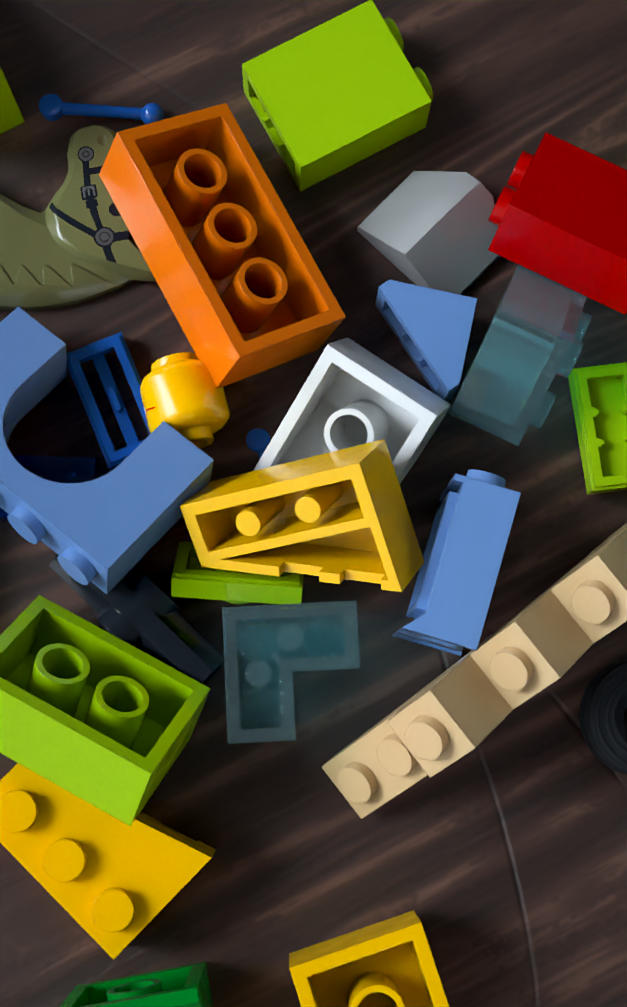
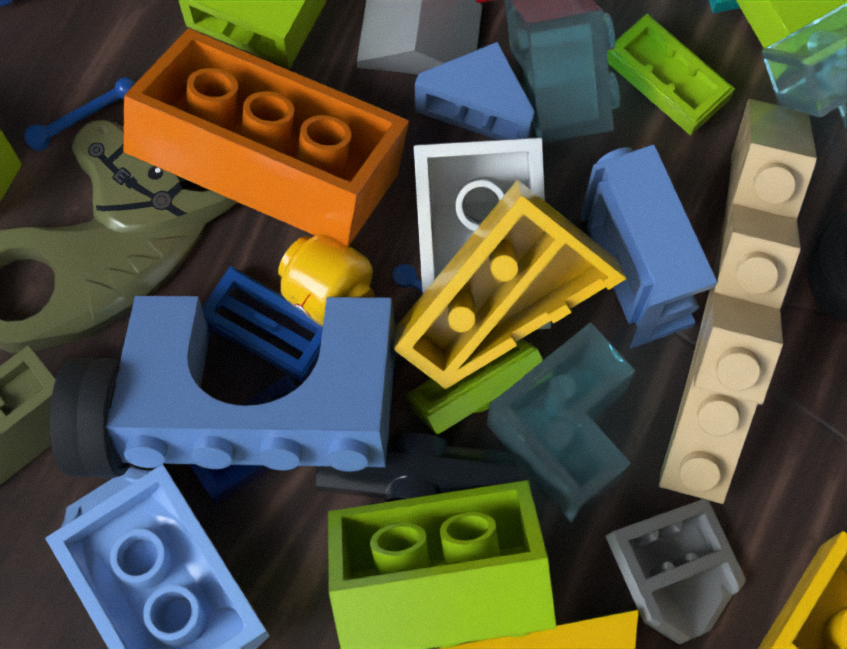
camera: 30 degrees left, 10 degrees down
(280, 843) = (678, 569): none -> light grey slope

